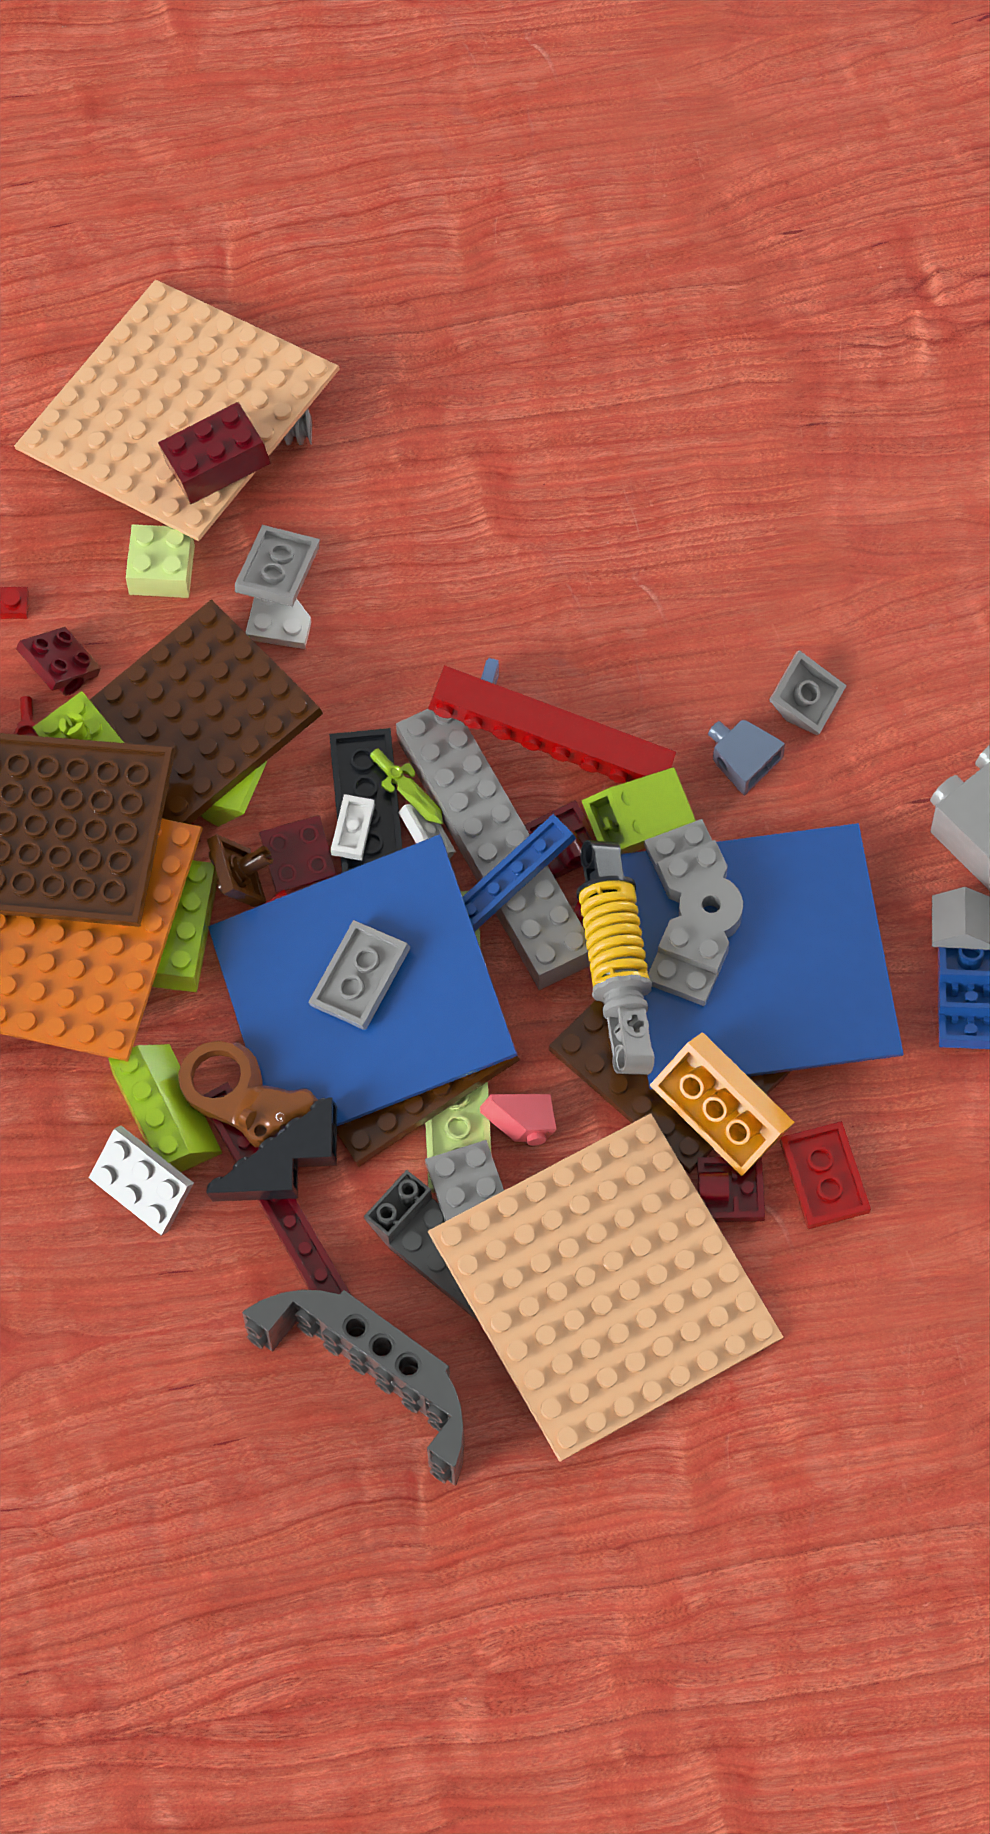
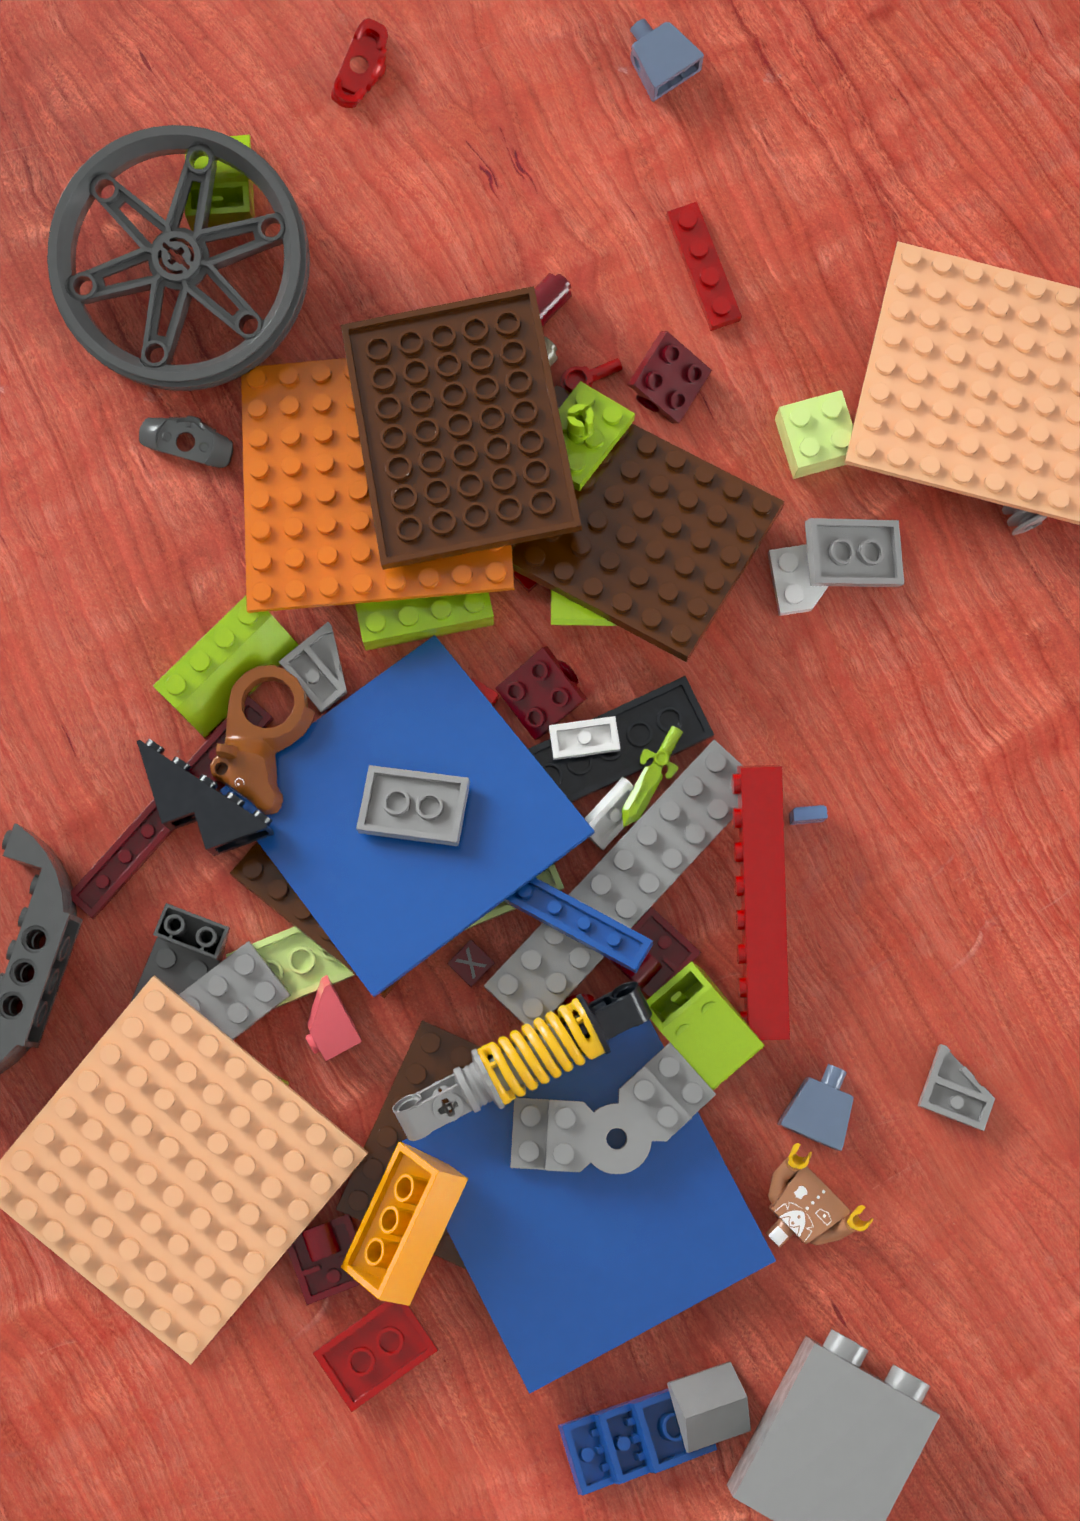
camera: 65 degrees right, 15 degrees up
(141, 1180) = (138, 672): plate -> none
(197, 1027) = (318, 668): none -> light grey wing
(214, 452) = (944, 439): dark red brick -> none
(238, 869) = (496, 641): reddish brown plate -> none
(514, 991) = (471, 963): none -> dark red tile
(767, 647) = (955, 1092): none -> light grey wing
(807, 694) = (914, 1153): light grey slope -> none
(822, 788) = (808, 1206): none -> nougat torso

